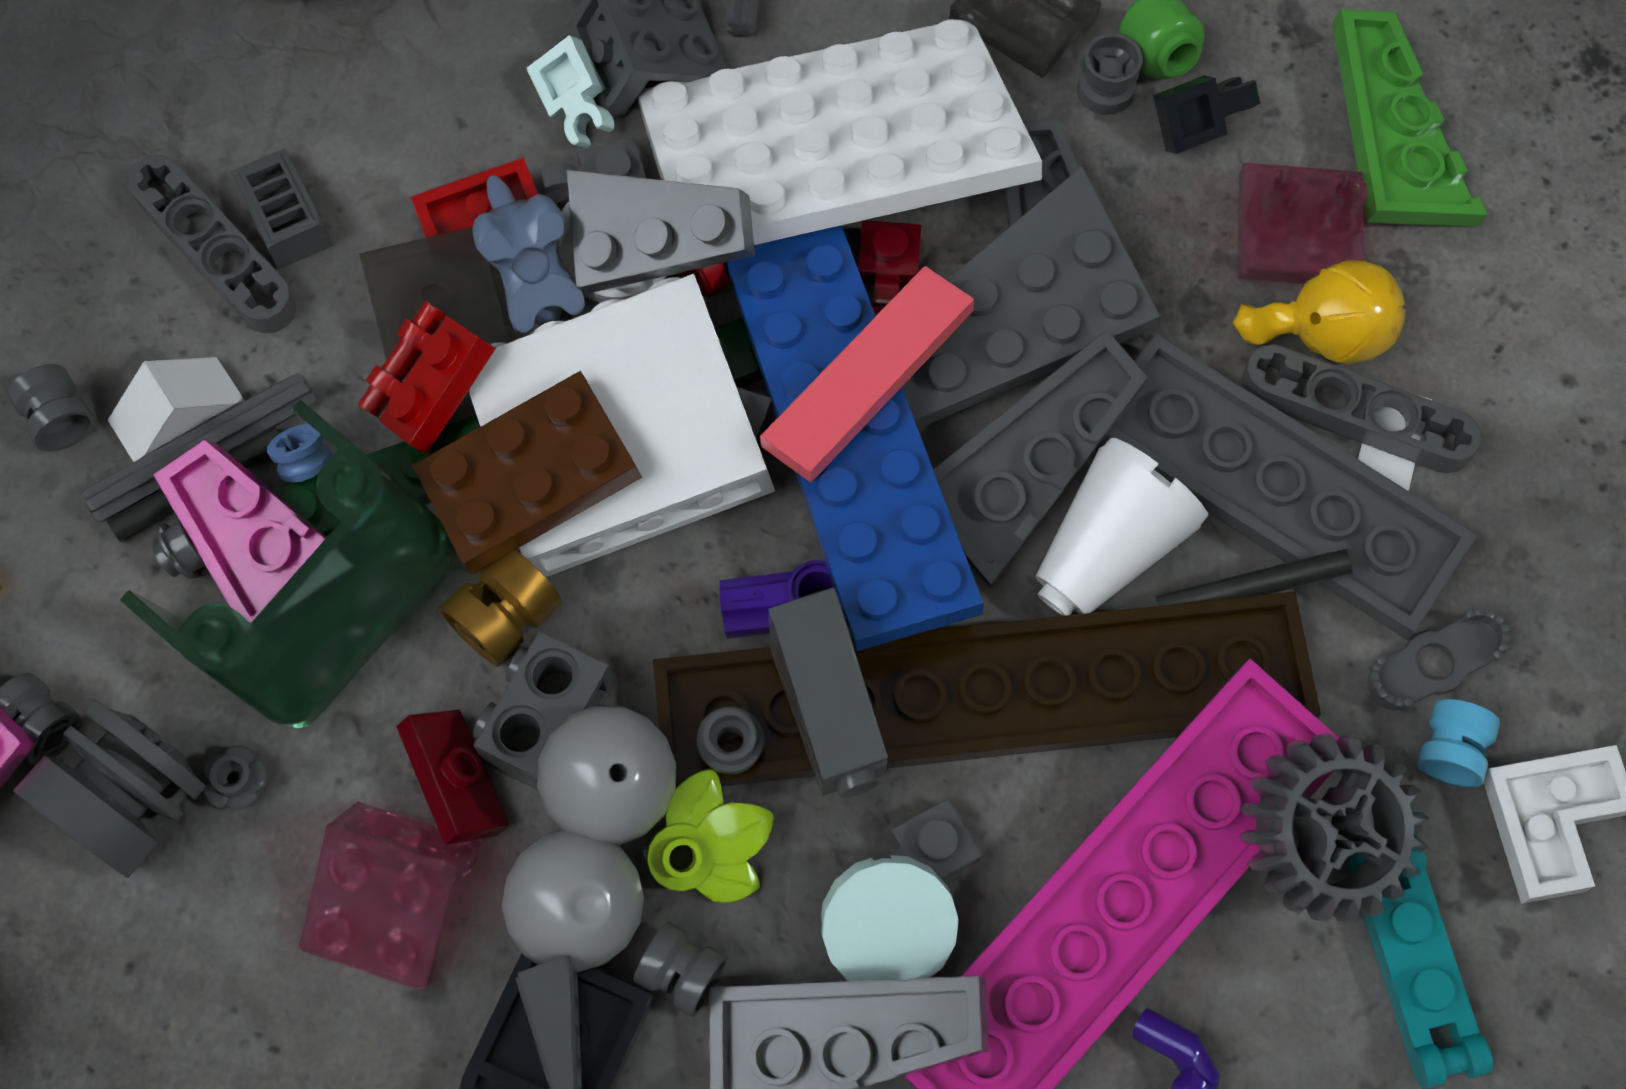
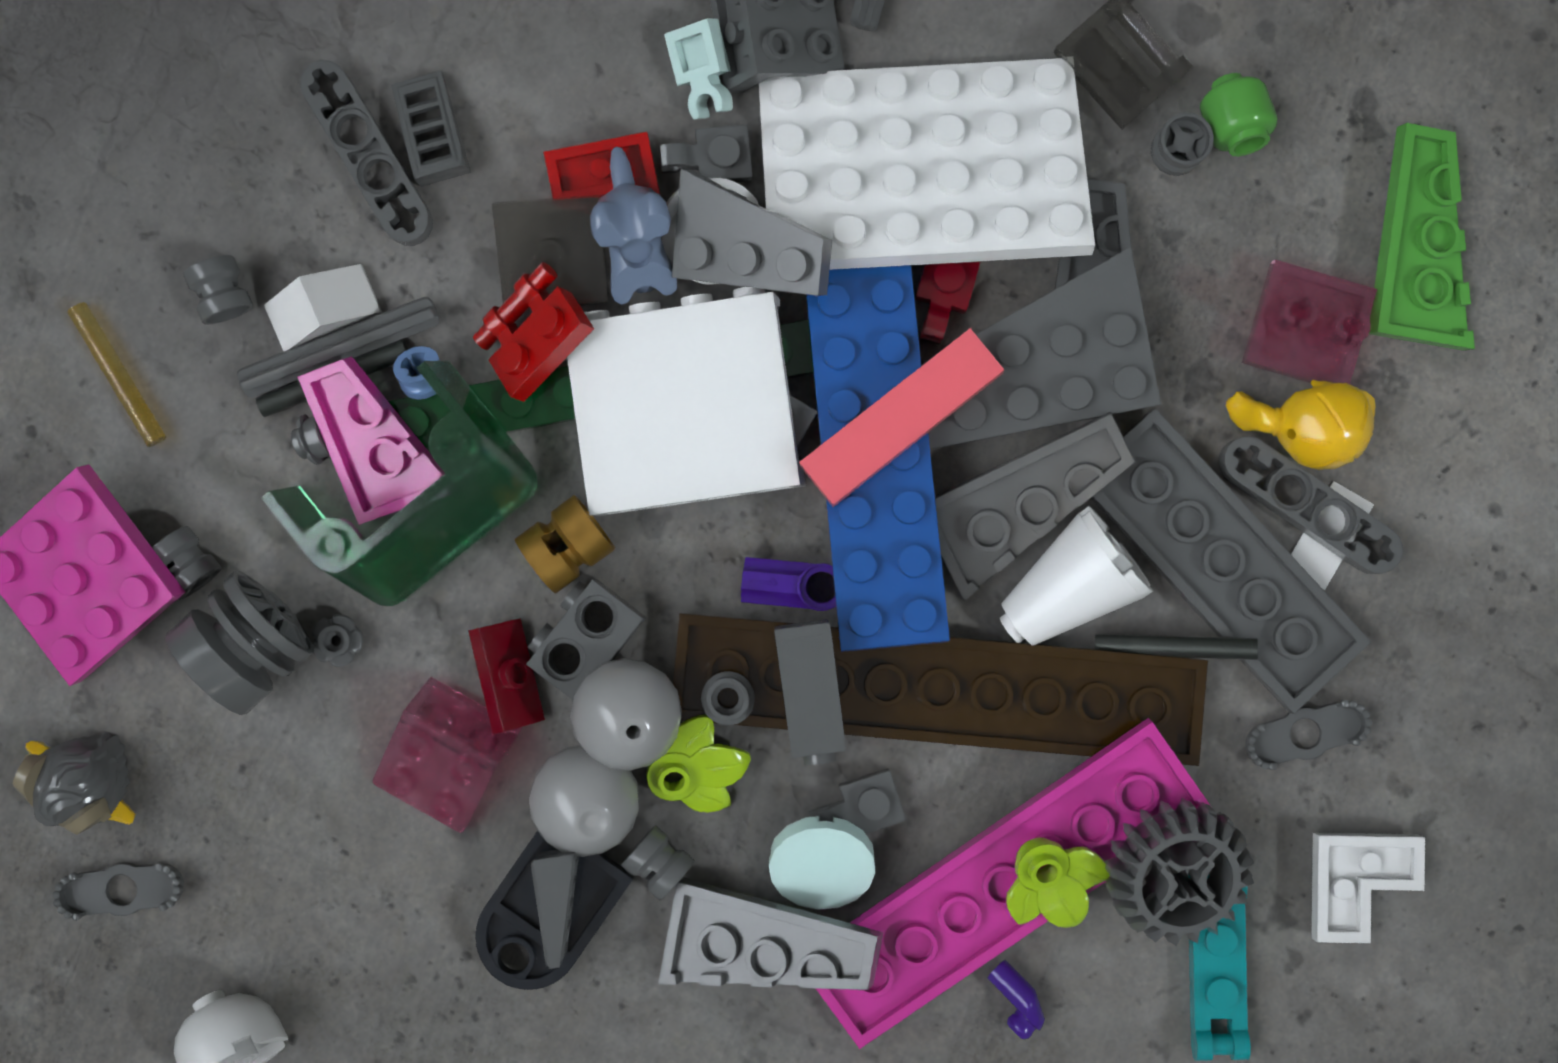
camera: 10 degrees right, 20 degrees up
(526, 472) = (602, 445): reddish brown plate -> none
(1191, 884) = (1058, 887): none -> lime plate
(1197, 109) = (1250, 195): black plate -> none
(1458, 743) = (1301, 809): medium azure wheel -> none

